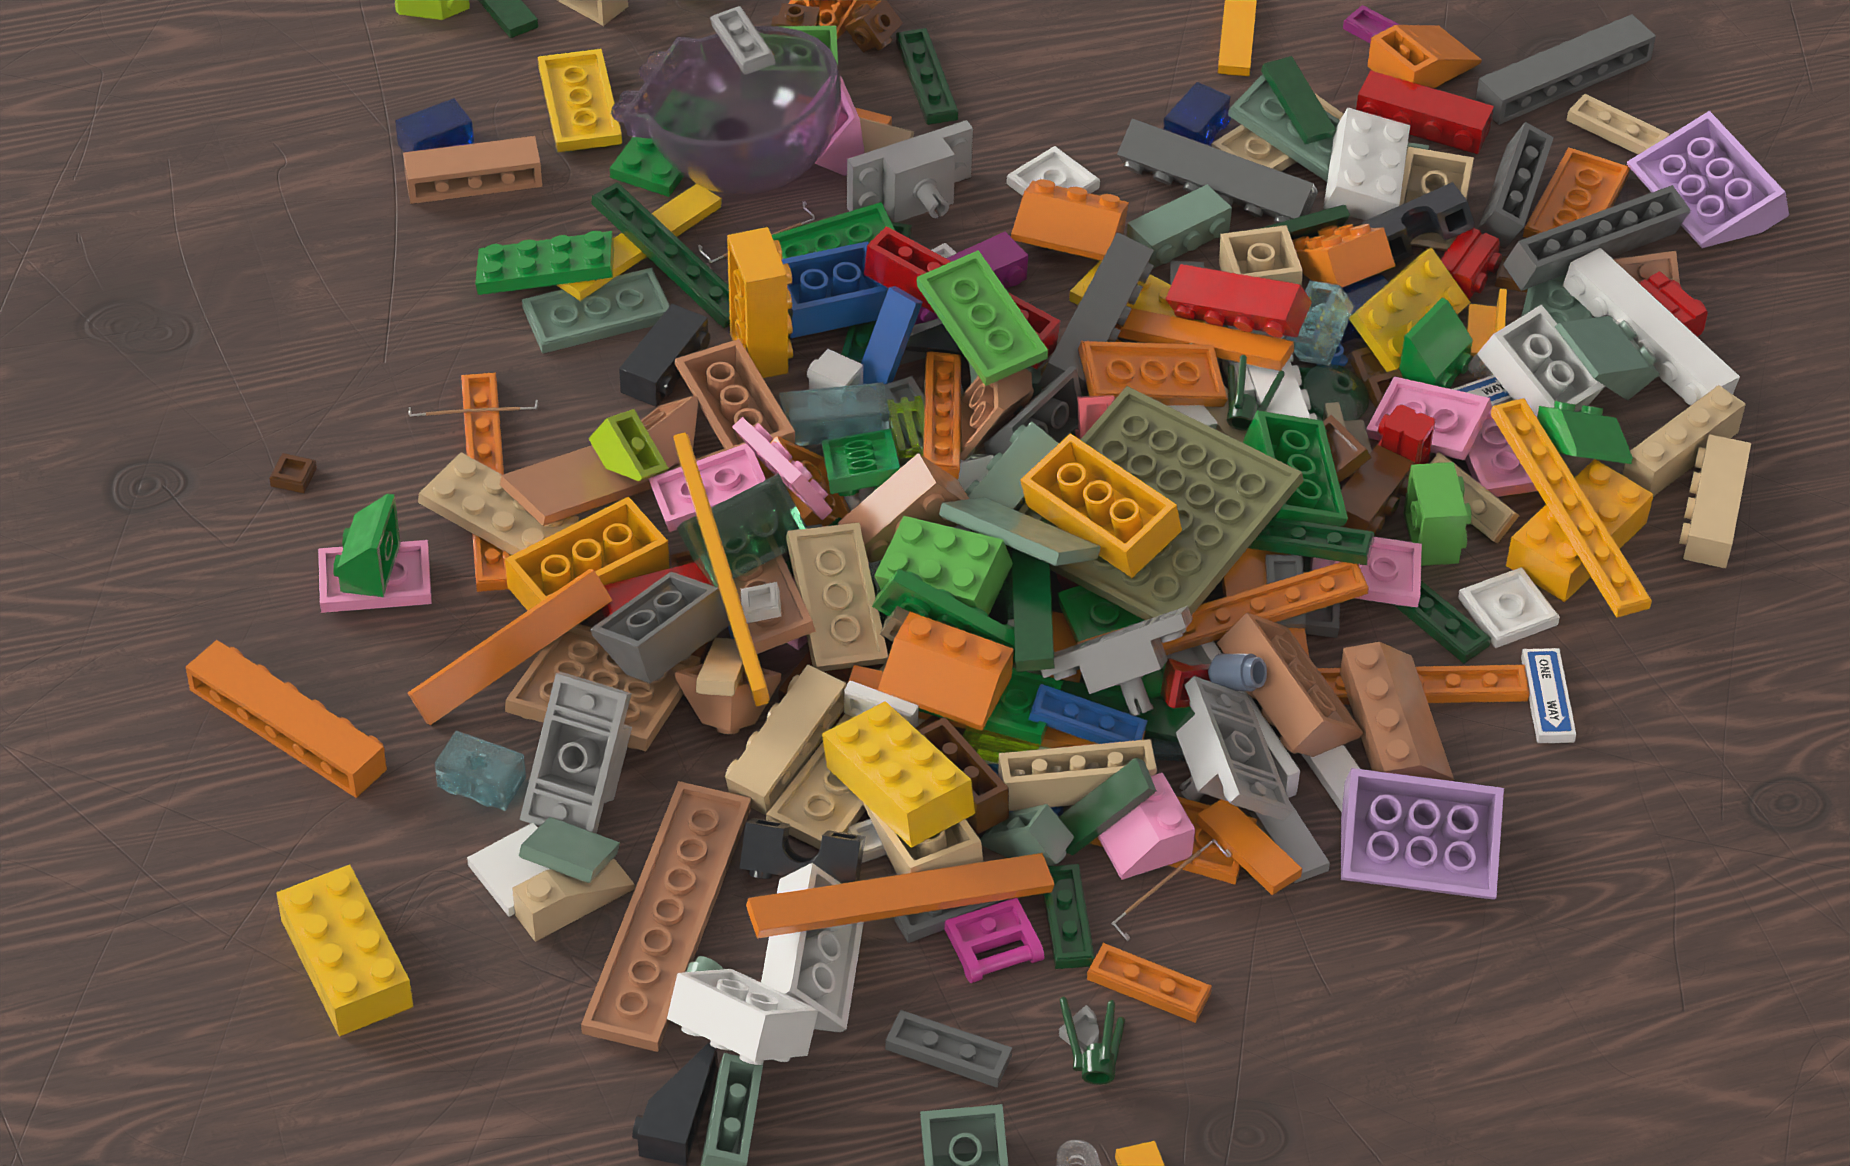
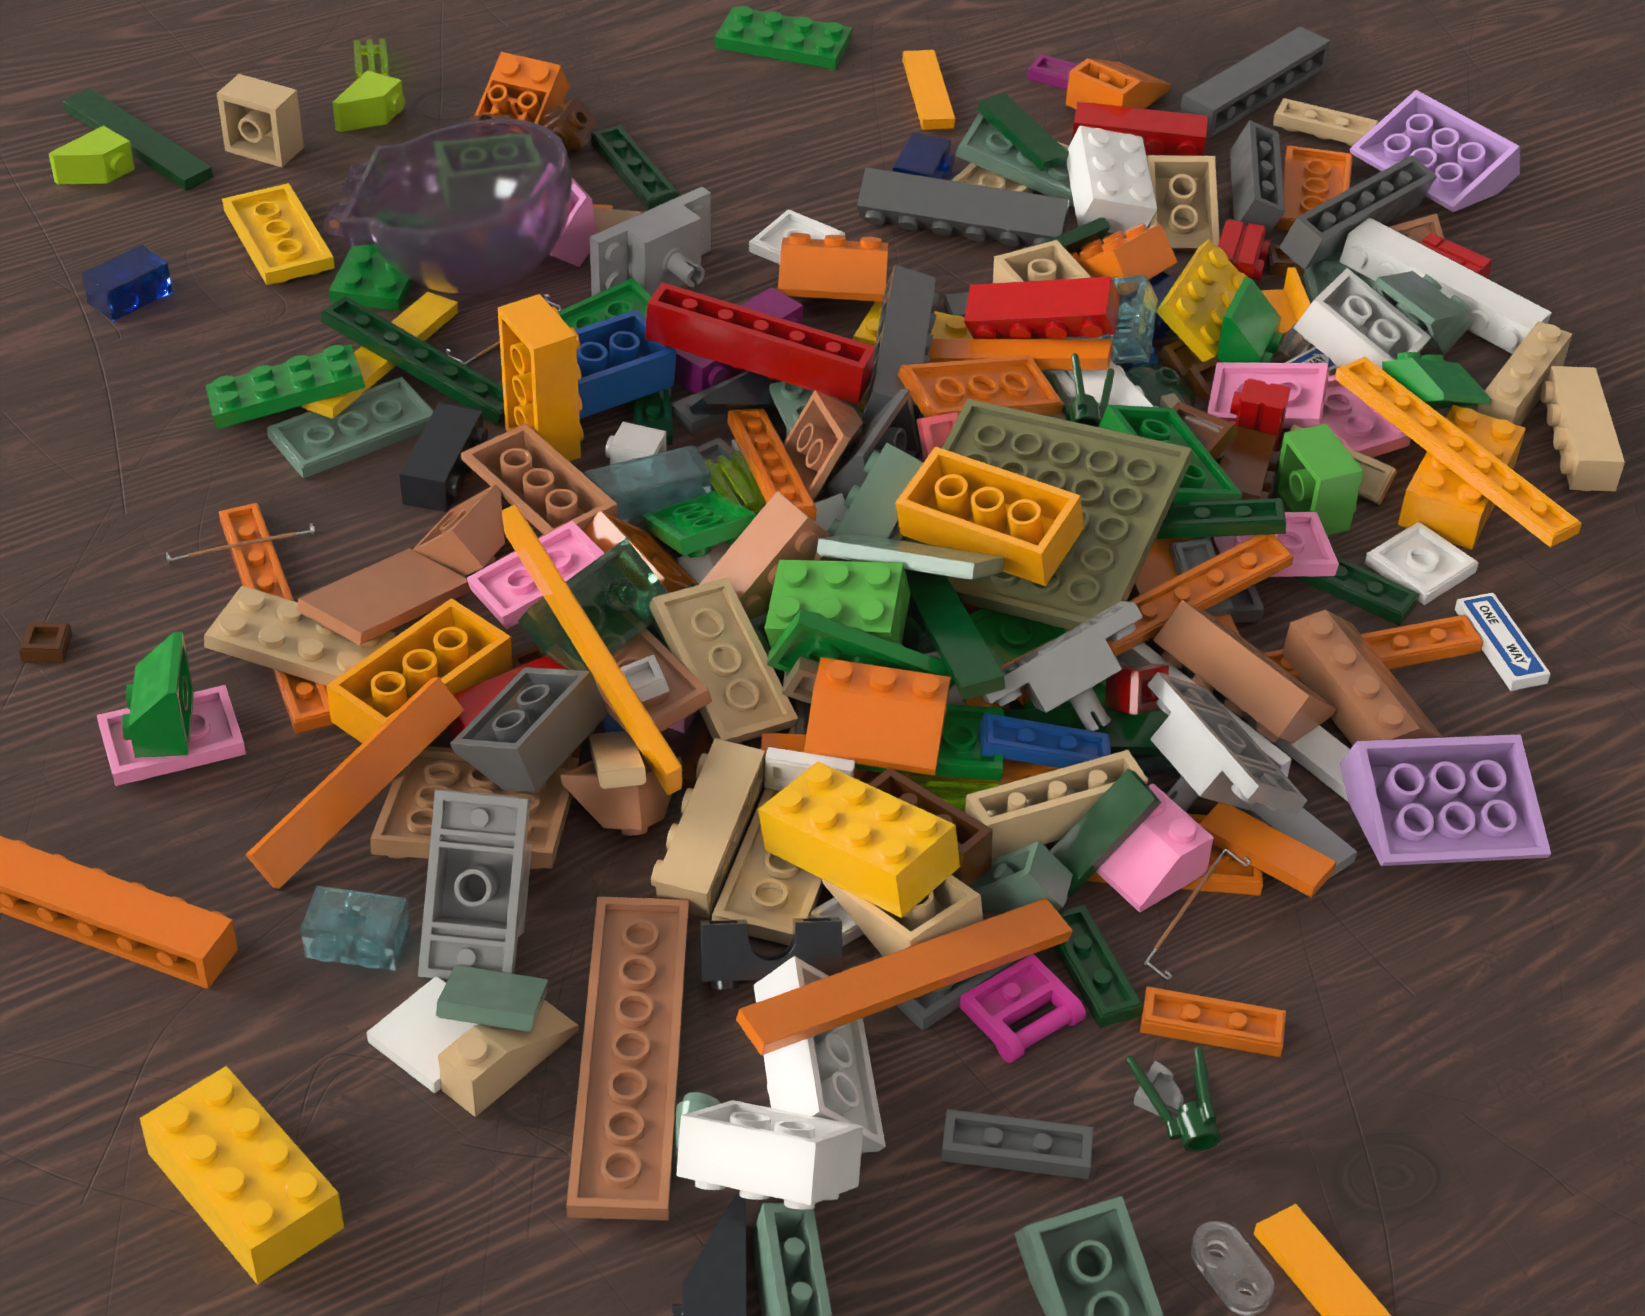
camera: 15 degrees left, 5 degrees down
(472, 169) = (178, 311): nougat brick -> none
(627, 447) = (433, 548): lime slope -> none
(742, 40) = (450, 135): light grey tile -> none
(777, 459) = (611, 525): bright pink plate -> none
(890, 336) = (690, 395): blue tile -> none
(982, 318) = (796, 352): bright green plate -> none
(1182, 225) = (950, 255): sand green brick -> none
(1238, 671) = (1194, 662): sand blue brick -> none
(1439, 212) = (1202, 208): black arch -> none

